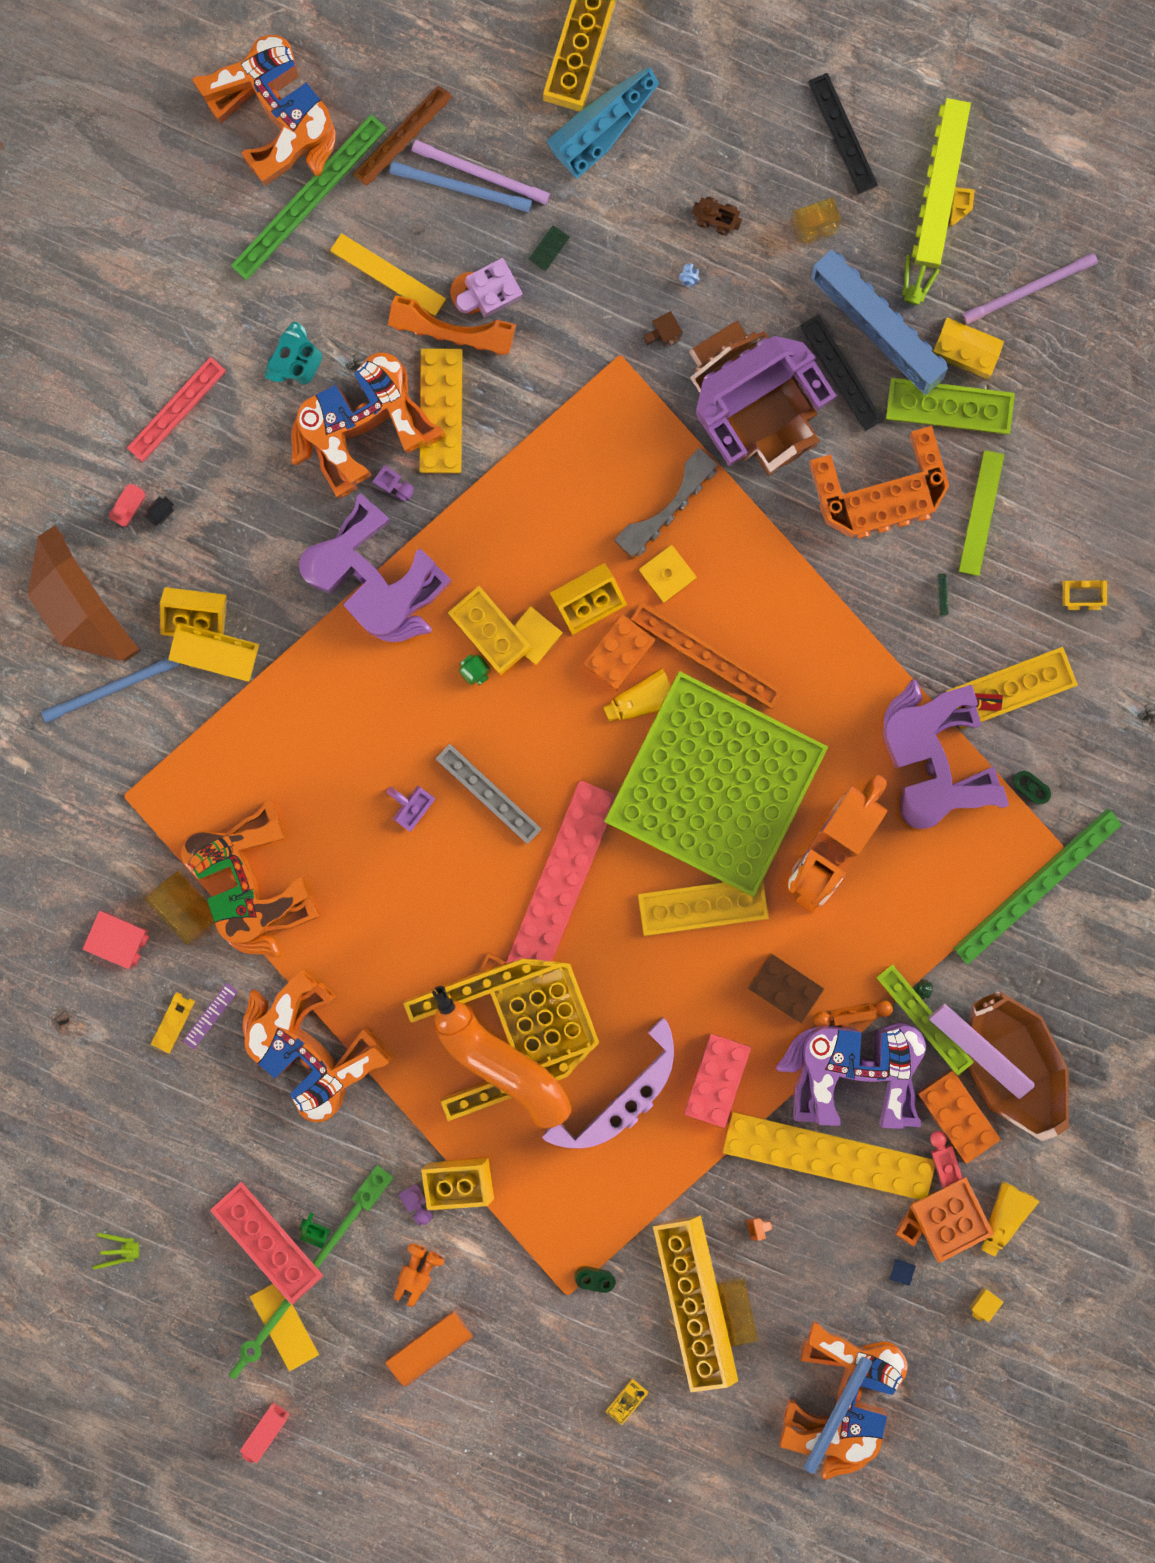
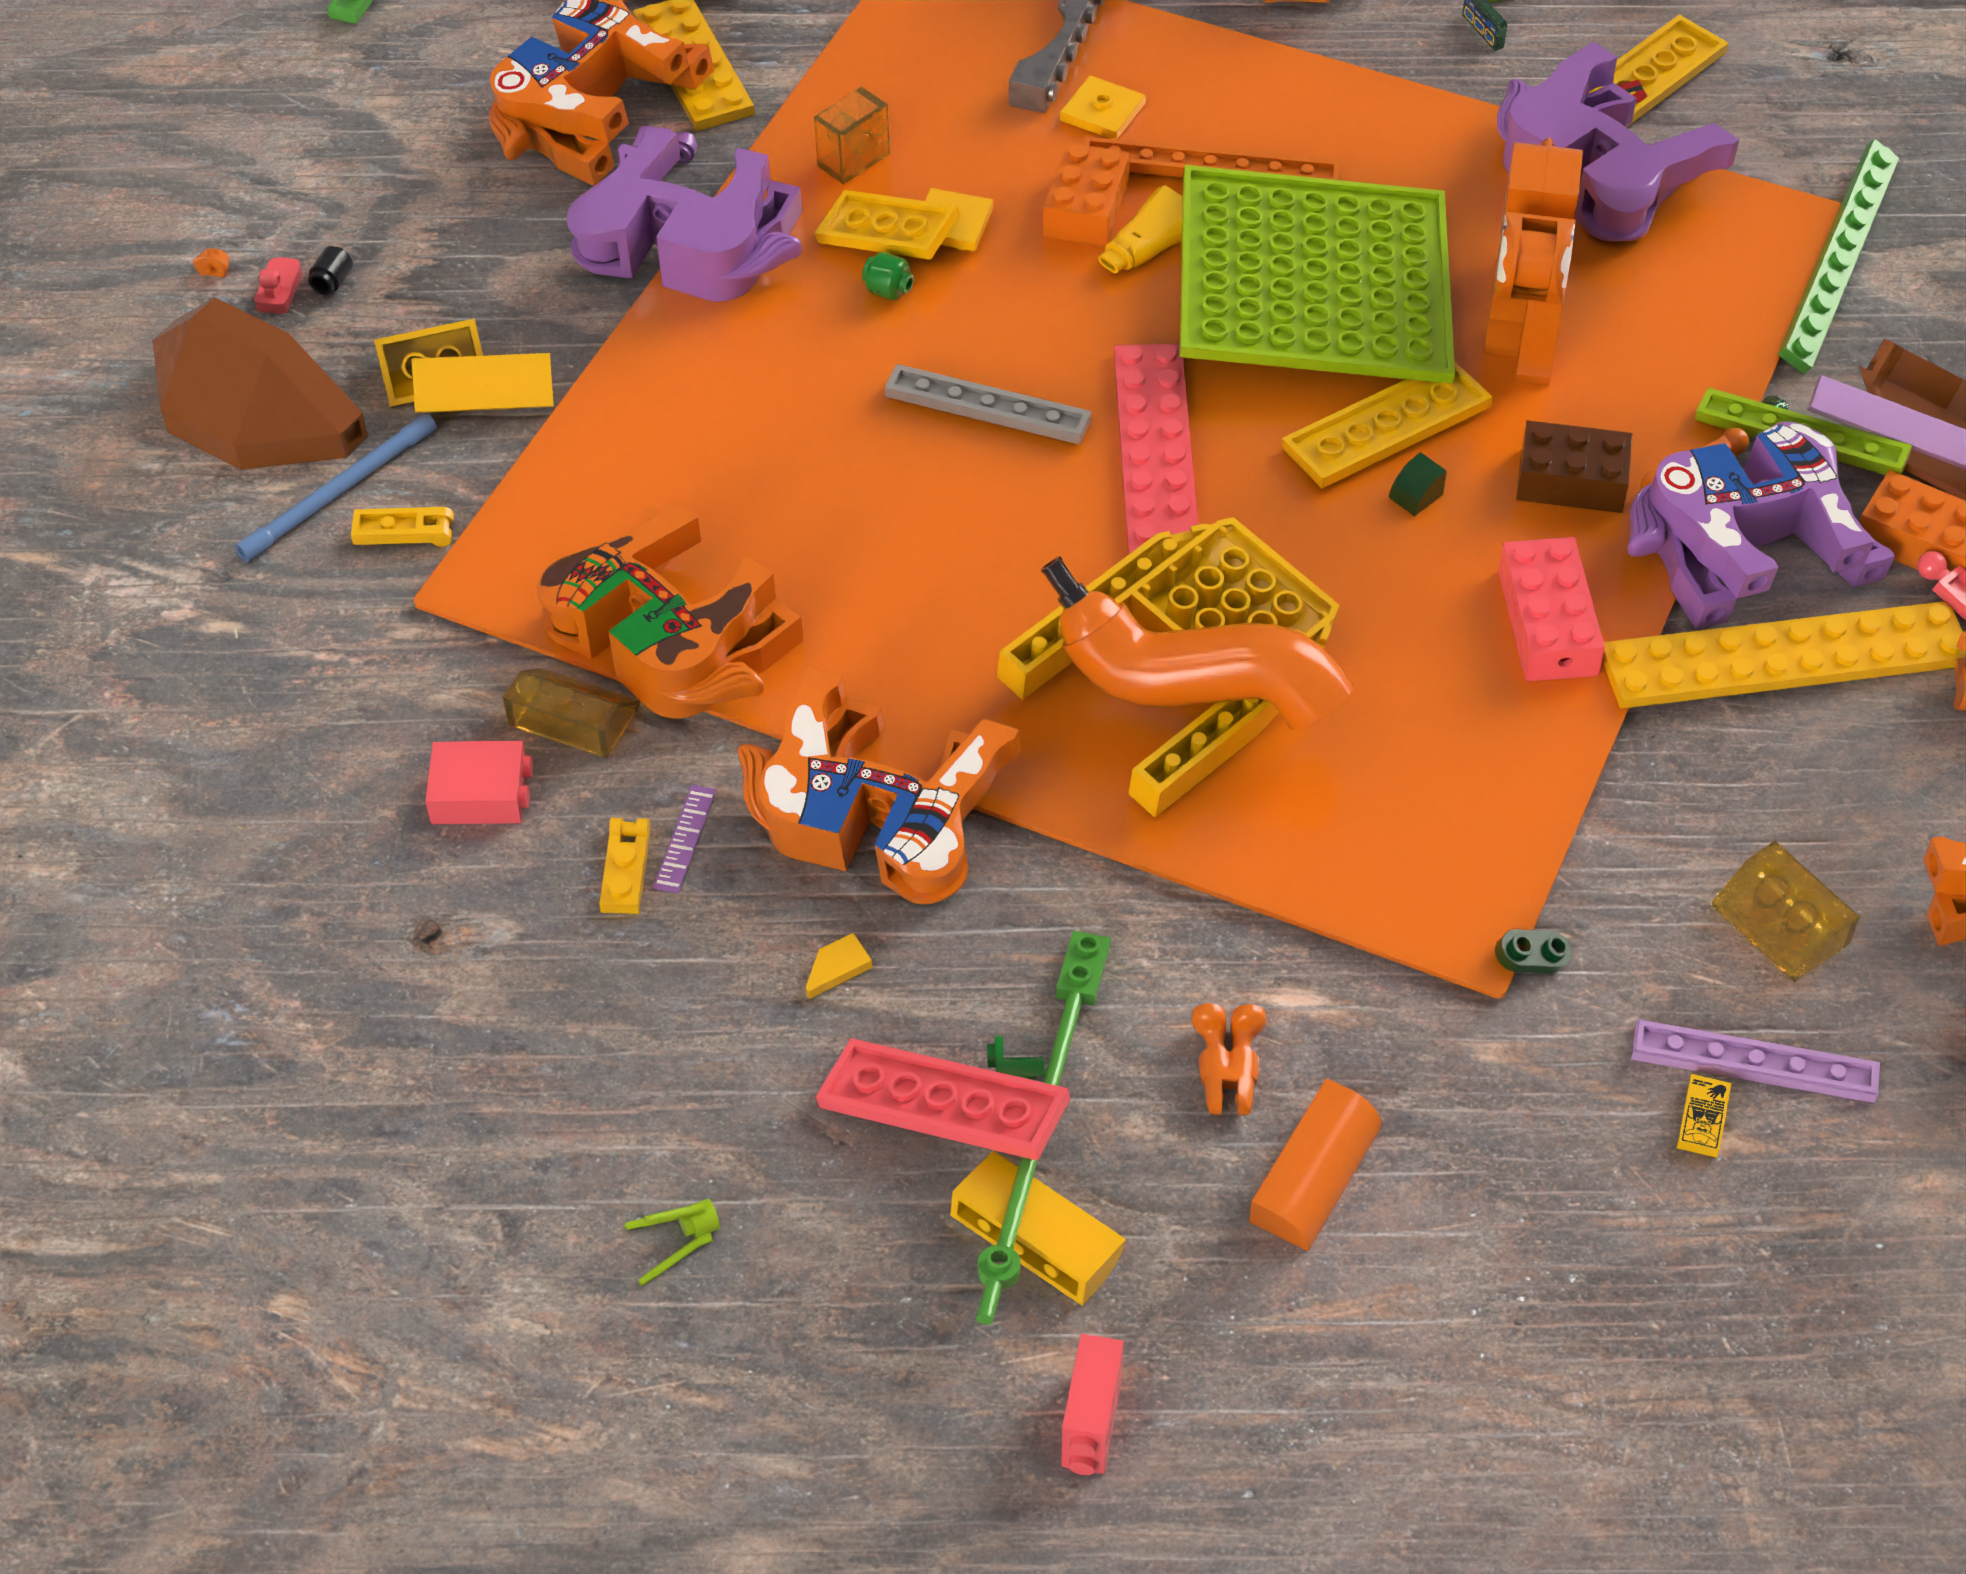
camera: 25 degrees left, 35 degrees down
(94, 470) = (212, 263): none -> orange piece
(135, 736) = (402, 526): none -> yellow plate
(176, 409) = (309, 171): coral tile -> none
(254, 1131) = (837, 964): none -> yellow tile
(281, 369) = (469, 57): teal piece -> none
(412, 808) = (881, 452): medium lavender plate -> none
(413, 1199) = (1163, 959): medium lavender plate -> none
(457, 1184) = (1225, 886): yellow brick -> none
(500, 547) = (852, 135): none -> clear yellow brick
(588, 598) = (1009, 157): yellow slope -> none
(600, 1128) = (1371, 755): lavender slope -> none
(669, 1382) = (1756, 1061): none -> lavender tile
(694, 960) = (1418, 484): none -> dark green brick
(695, 1304) = (1725, 909): yellow brick -> none
(757, 1228) = (1744, 784): orange tile -> none
(1031, 787) = (1757, 161): dark green plate -> none

